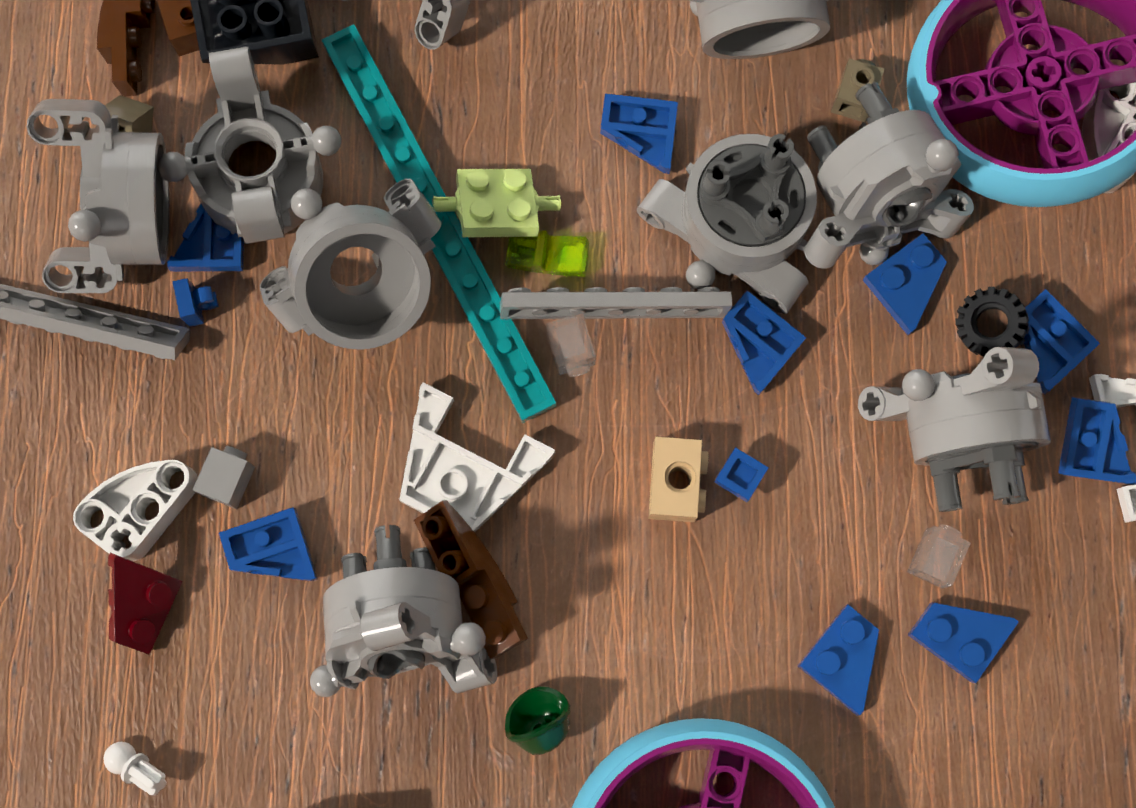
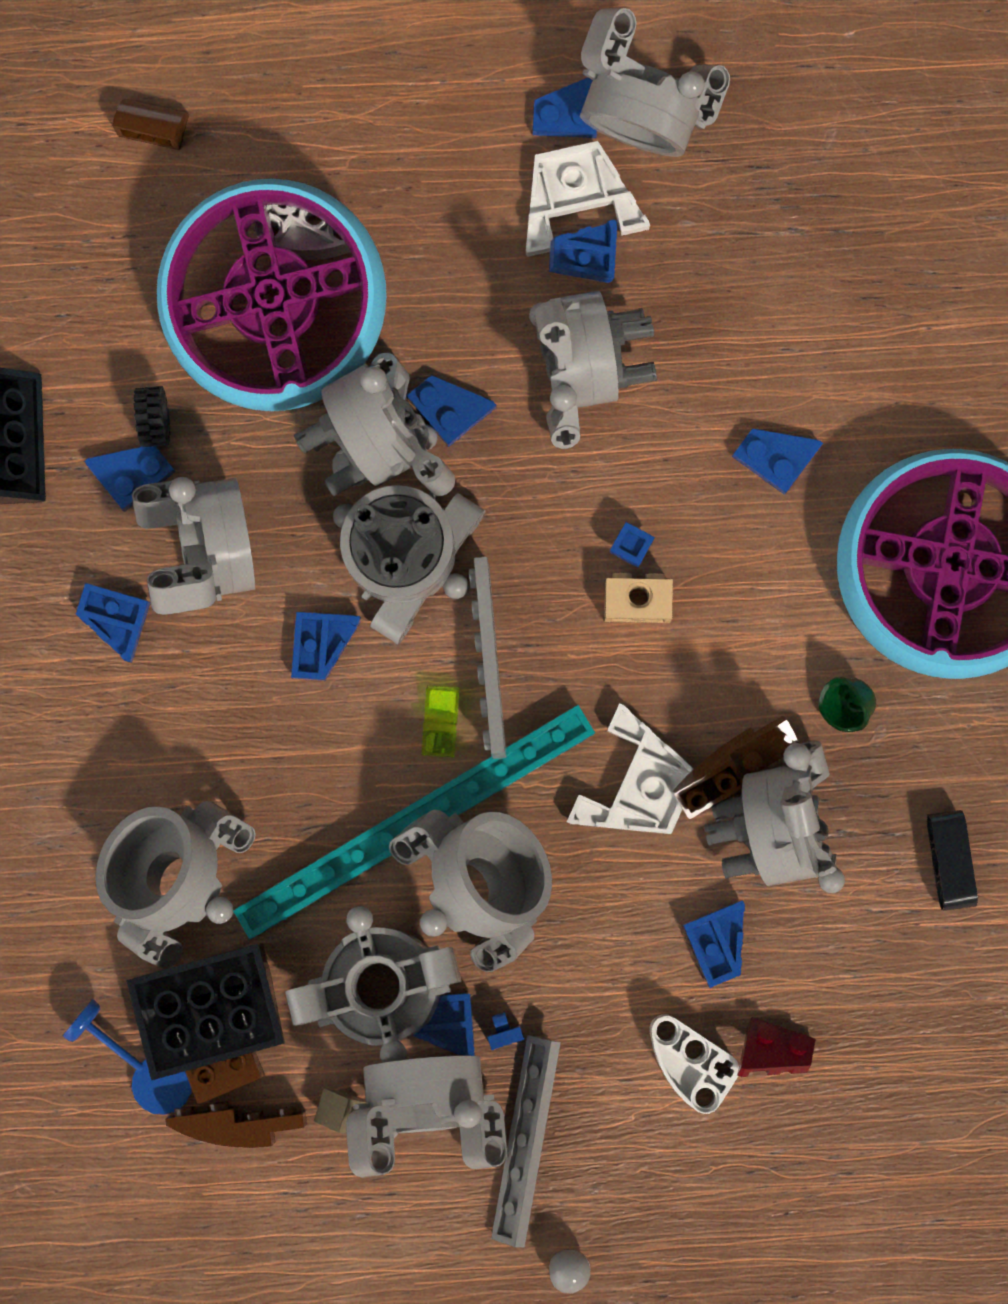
camera: 90 degrees left, 5 degrees up
(134, 768) = (903, 1053): white axle -> none
(224, 476) = (660, 988): light grey brick -> none
(496, 203) = (400, 767): yellowish green plate -> none
(571, 345) = (526, 694): clear brick -> none
(760, 340) = (511, 532): blue wing -> none
(855, 75) = (275, 453): dark tan brick -> none
(939, 556) = (688, 380): clear brick -> none
(962, 637) = (752, 360): blue wing -> none
(986, 300) = (506, 343): black tyre -> none
(1055, 340) = (497, 286): blue wing -> none

